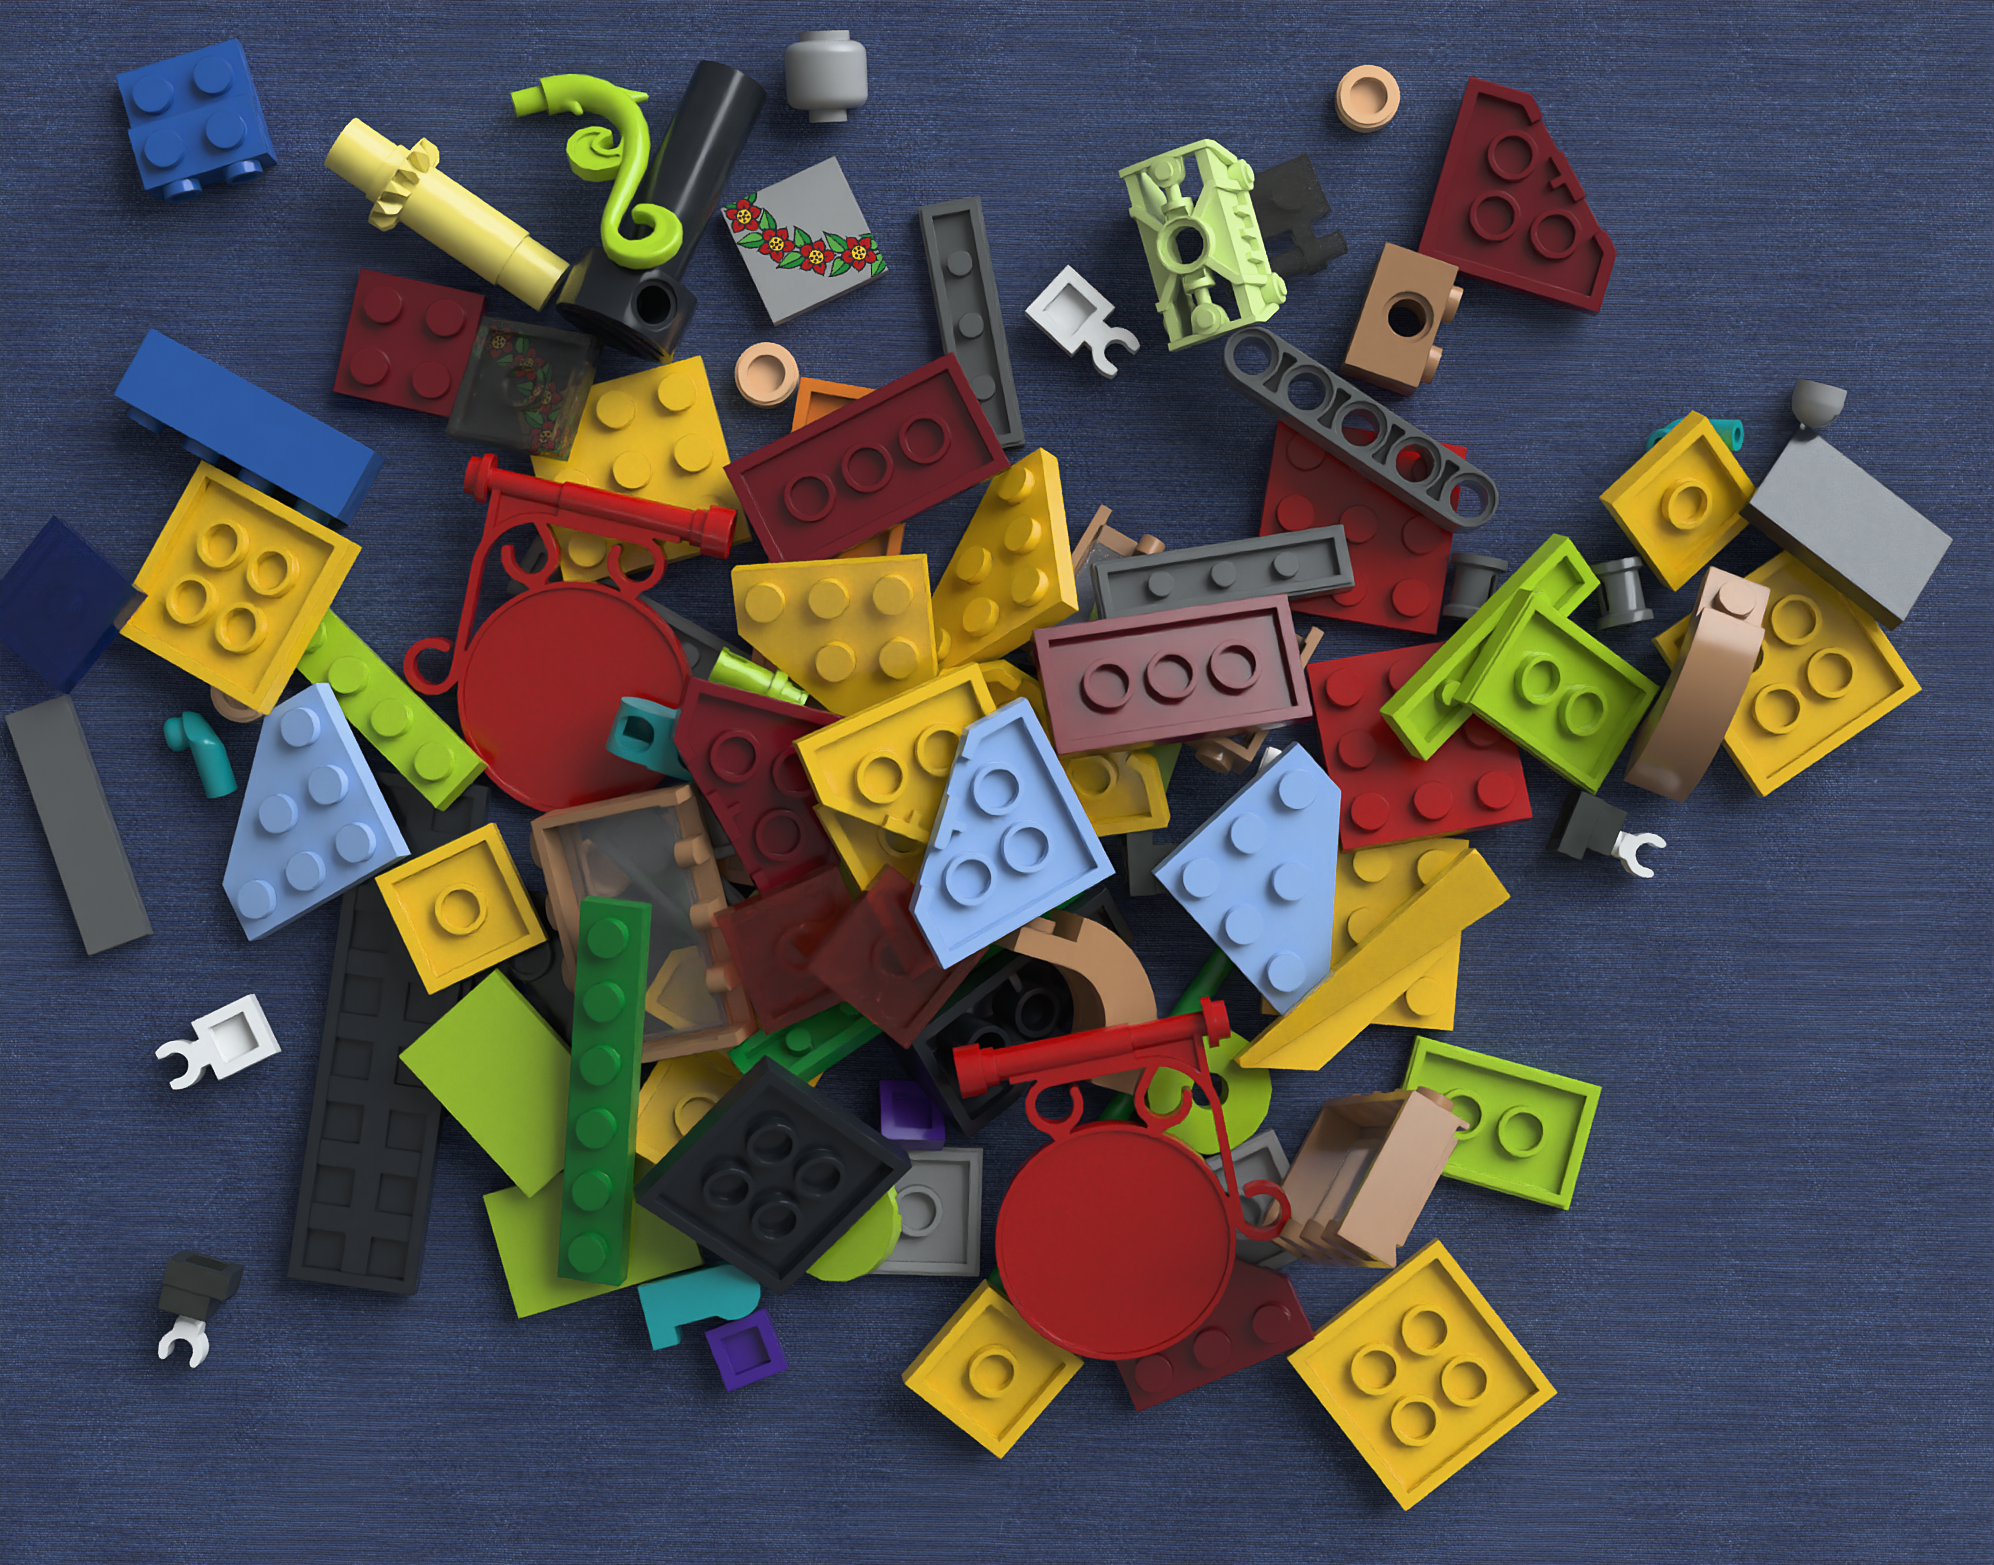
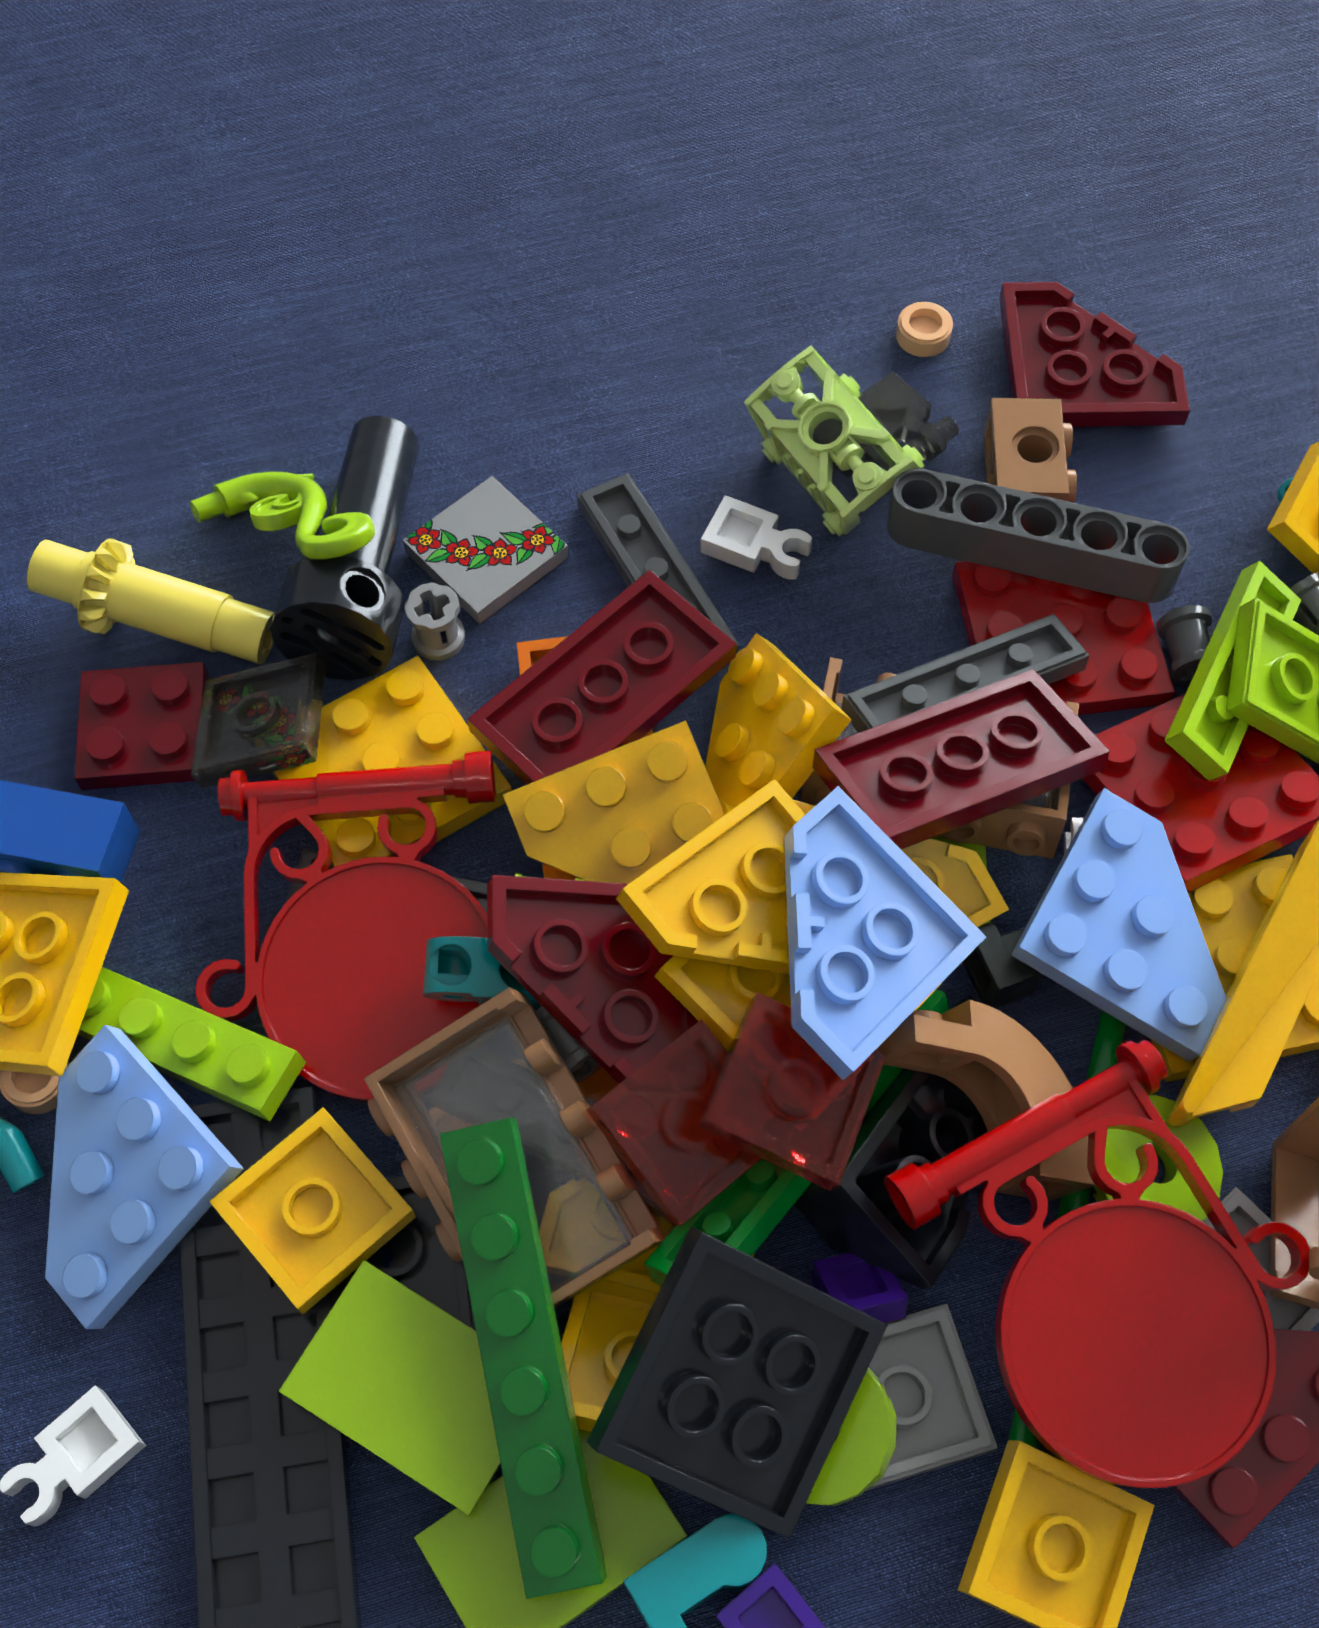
camera: 20 degrees left, 25 degrees down
(709, 315) = (443, 617): none -> light grey bush
(767, 375) = (484, 660): light nougat tile -> none
(825, 75) = (465, 417): light grey head -> none

